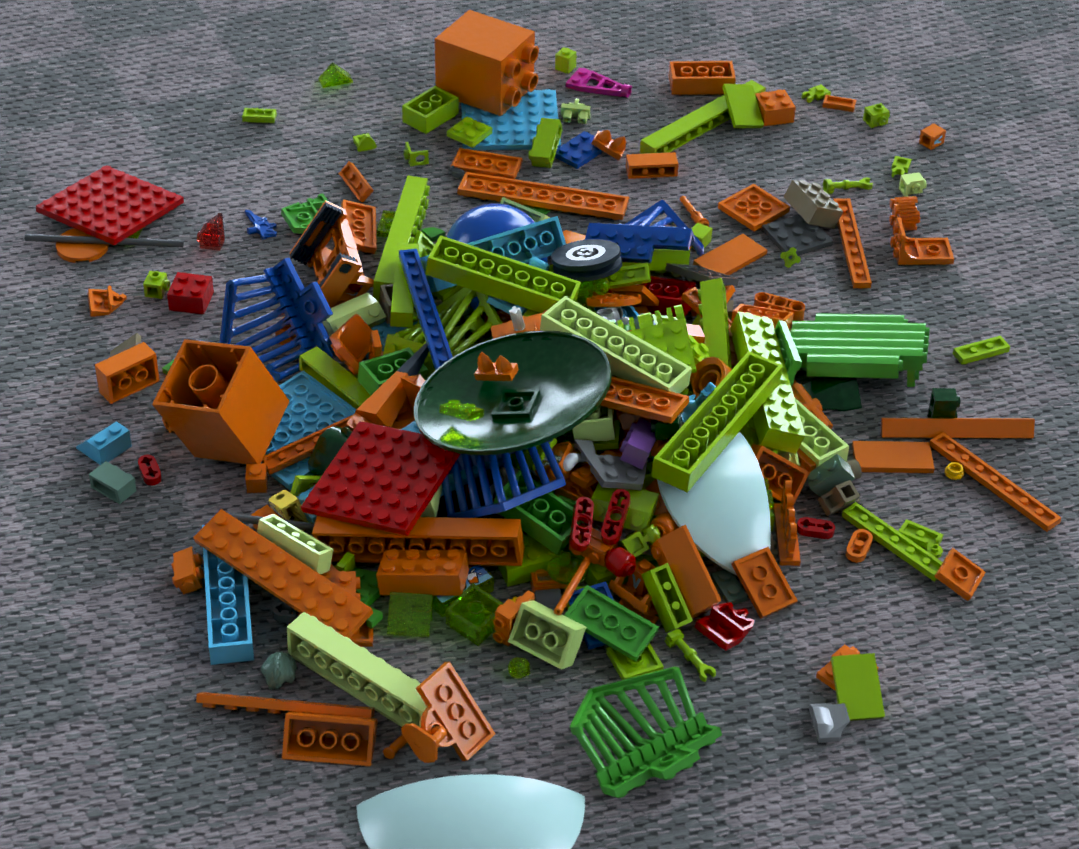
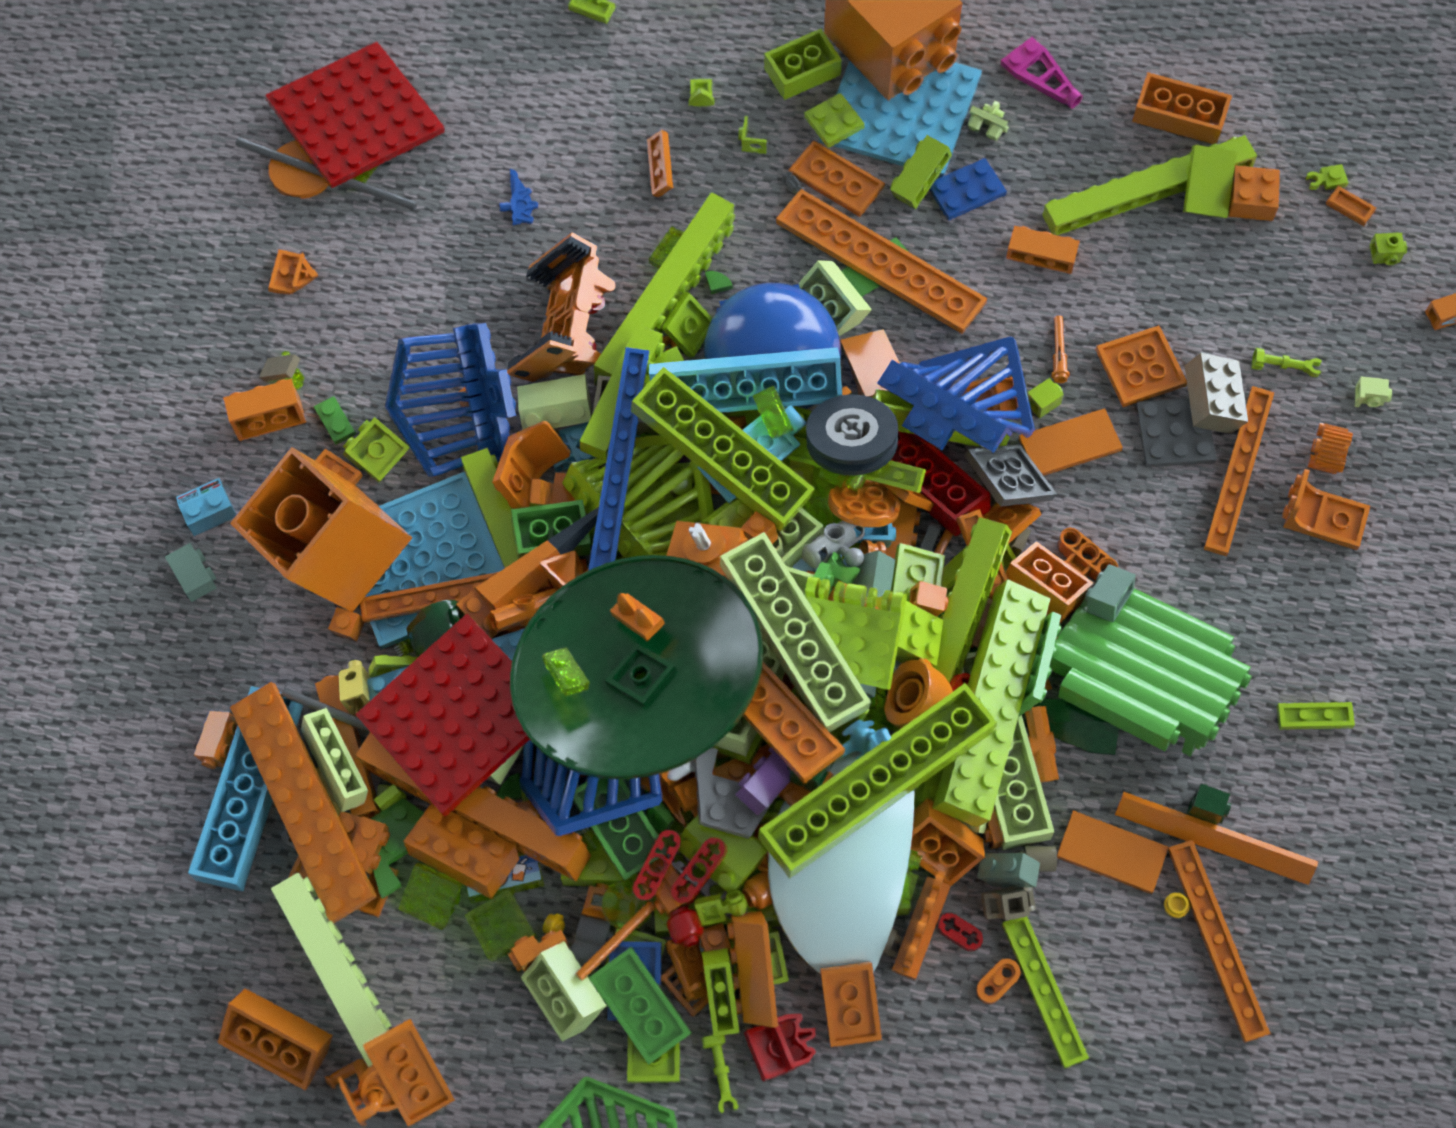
camera: 25 degrees right, 25 degrees up
(152, 469) = (235, 563): red beam -> none
(156, 284) = (356, 267): lime brick -> none
(190, 293) = (389, 296): red brick -> none
(212, 234) = (451, 206): clear red slope -> none
(276, 705) = (247, 974): orange plate -> none
(279, 669) = (259, 921): sand green hair -> none
(300, 215) = (572, 209): bright green wing -> none
(362, 224) = (630, 244): orange plate -> none
(397, 415) = (519, 611): none -> orange piece
(519, 667) = (520, 1017): clear neon green tile -> none
(522, 255) = (773, 412): none -> clear neon green plate
(565, 60) = (1017, 20): lime brick -> none
(612, 147) = (1002, 197): orange tile -> none
(728, 587) = (811, 989): sand green plate -> none
(789, 262) = (1148, 467): lime plate -> none
(808, 312) = (1110, 592): none -> sand green piece
(900, 166) = (1374, 352): lime plate -> none
(923, 537) = (1082, 997): lime hinge -> none
(960, 574) = (1097, 1074): orange tile -> none

